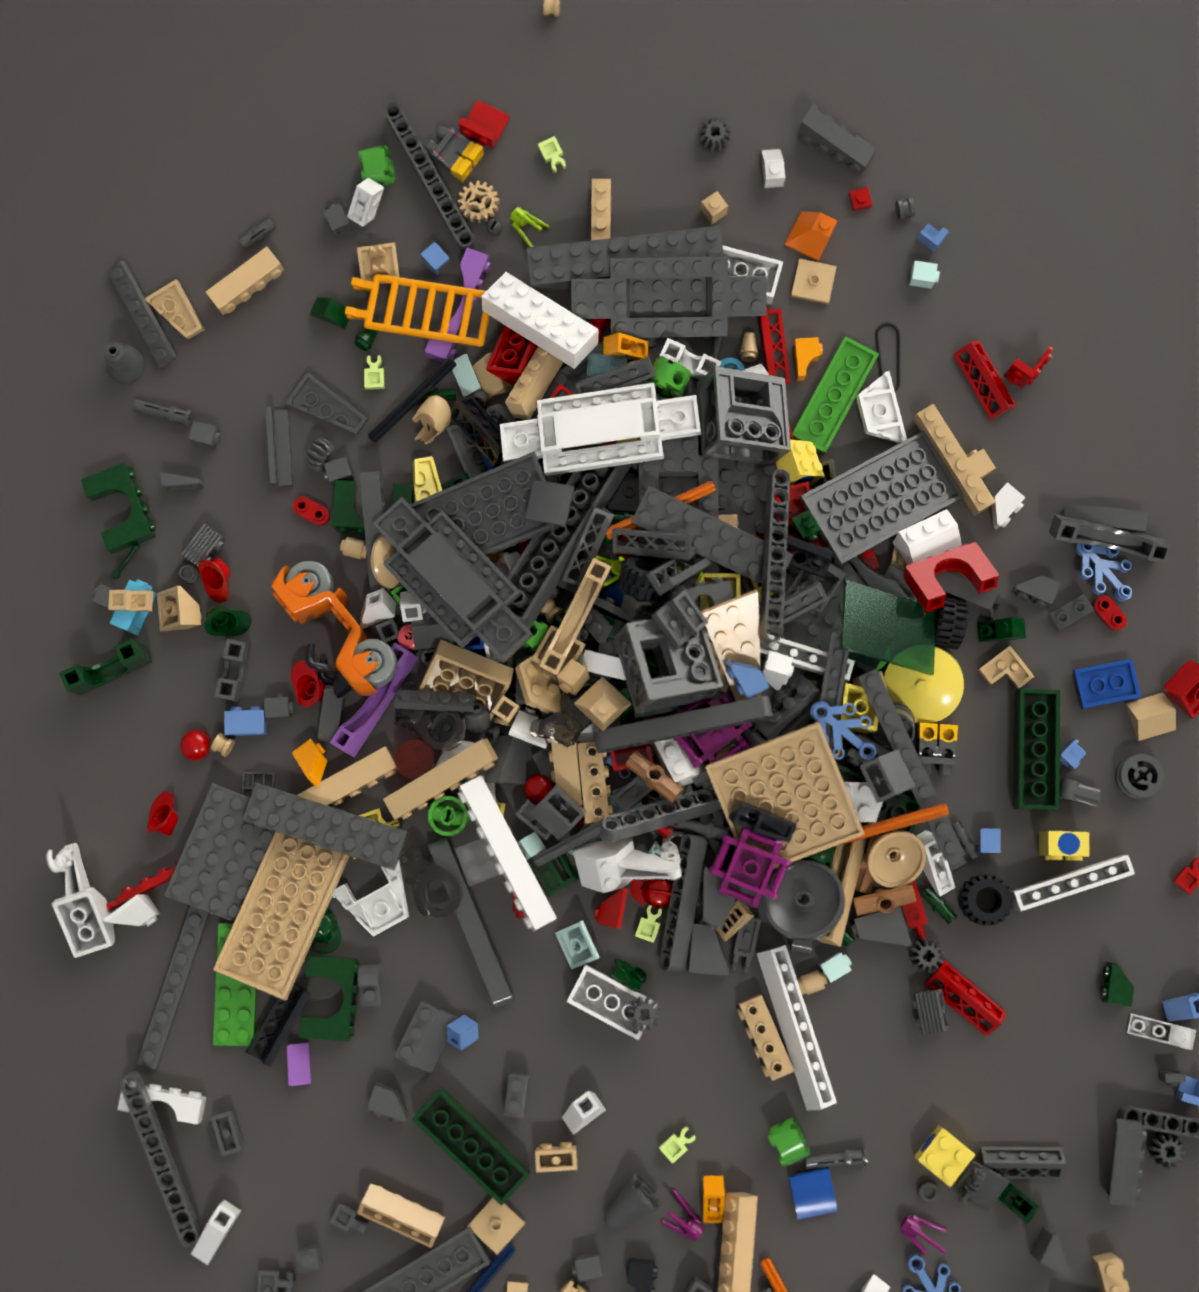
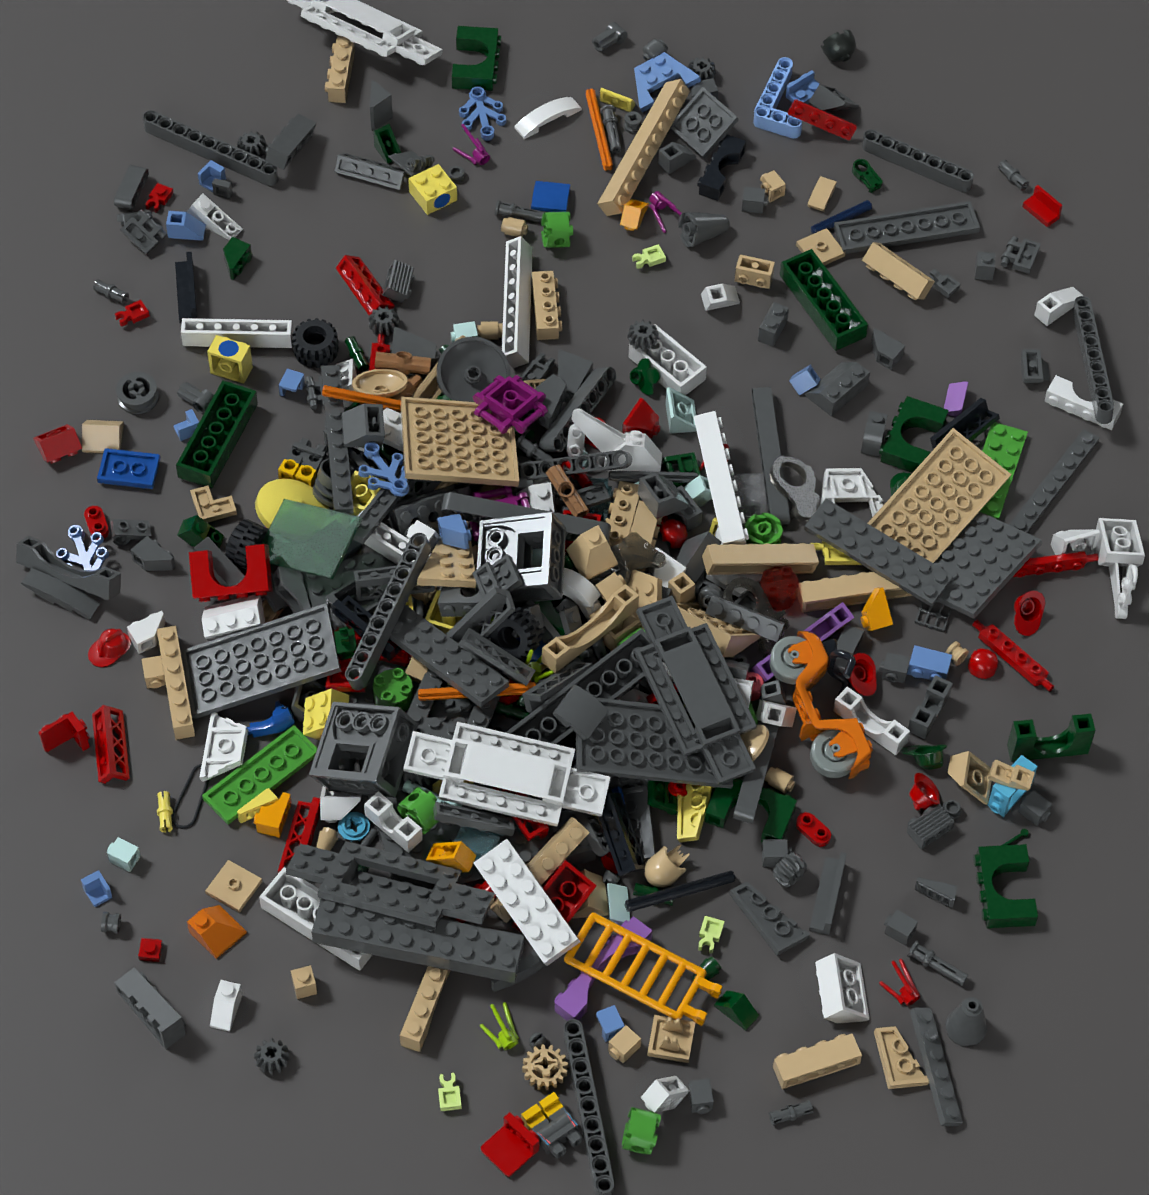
camera: 165 degrees left, 25 degrees down
(167, 764) = (1013, 655): none -> red plate
(184, 374) = (909, 993): none -> red plant
(241, 356) = (841, 989): none -> white slope
(282, 636) = (886, 733): none -> white arch
(416, 243) = (624, 1044): none -> tan brick
(648, 927) = (614, 408): yellowish green plate -> none
(742, 497) = (393, 689): none -> bright green brick
(762, 821) = (487, 429): black slope -> none
(819, 367) = (249, 810): none -> light yellow slope
(836, 1134) = (514, 227): none -> tan brick
(842, 448) = (280, 721): none -> blue animal
(906, 330) = (164, 811): none -> light yellow pin
(1033, 481) = (109, 647): none -> red piece
(1149, 927) = (186, 288): none -> black fence

